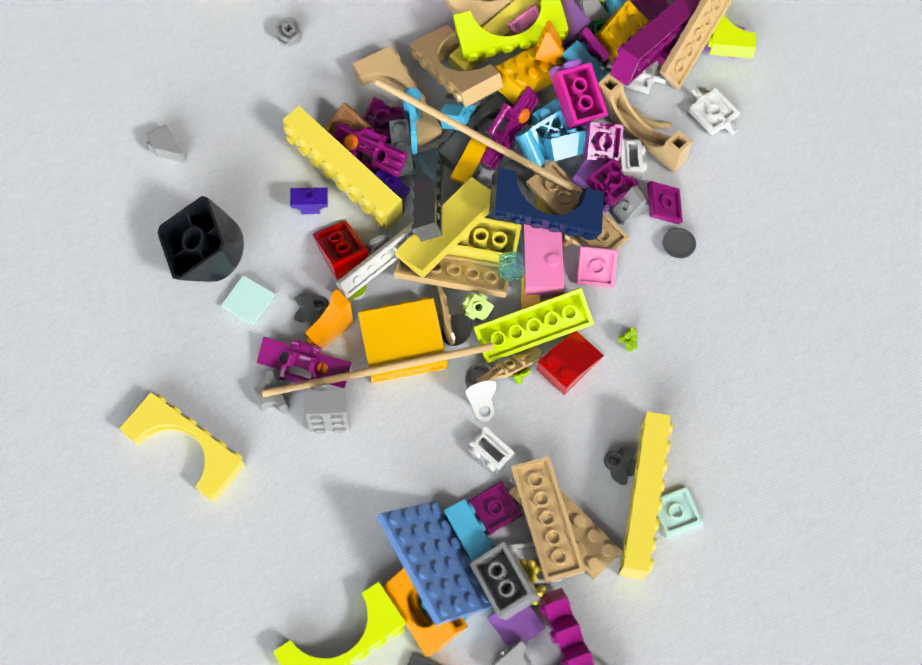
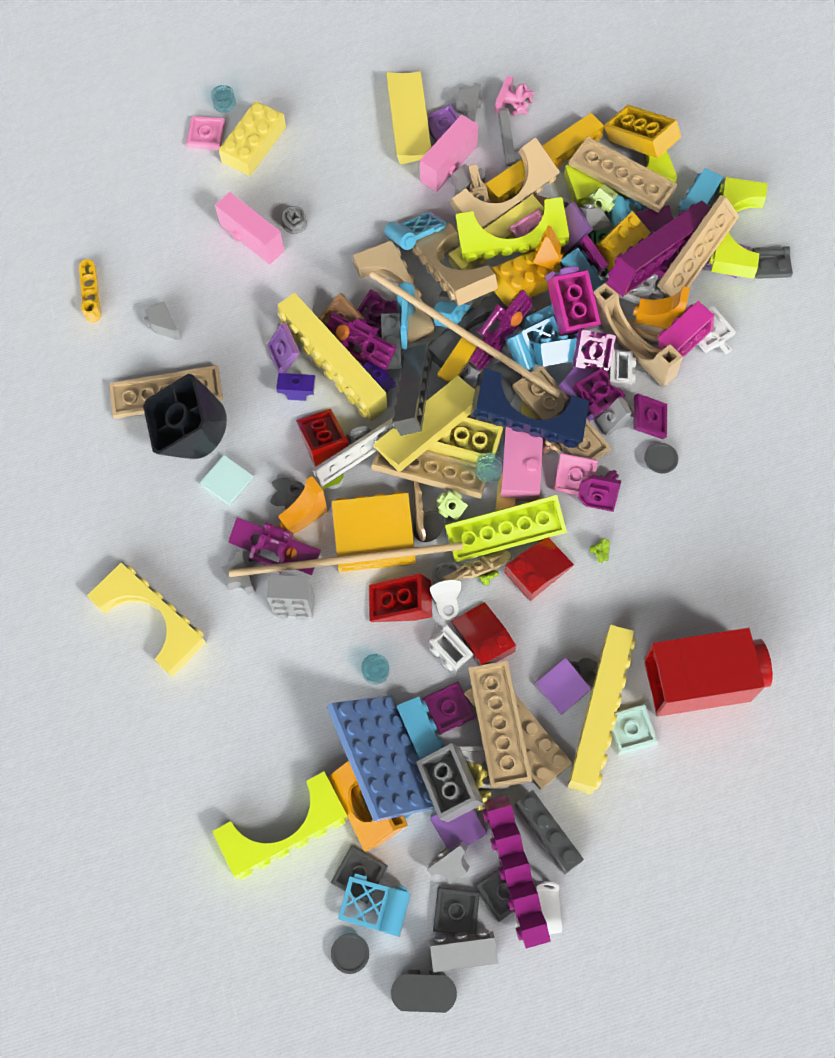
camera: 10 degrees right, 0 degrees up
(95, 143) = (95, 314): none -> yellow beam
(142, 222) = (130, 395): none -> tan plate
(245, 43) = (249, 228): none -> bright pink brick
(292, 163) = (283, 348): none -> medium lavender tile
(404, 39) = (405, 233): none -> medium azure piece
(418, 476) = (375, 669): none -> clear light blue wheel
(436, 405) = (401, 599): none -> red slope
(523, 432) = (484, 635): none -> red slope
(606, 476) = (563, 686): none -> medium lavender tile
(606, 620) = (548, 832): none -> dark grey brick
(623, 280) = (600, 491): none -> magenta piece
(668, 98) = (661, 312): none -> light orange arch
(694, 113) = (688, 329): none -> dark pink brick
(744, 448) = (707, 671): none -> red container
(772, 45) = (774, 267): none -> dark grey plate

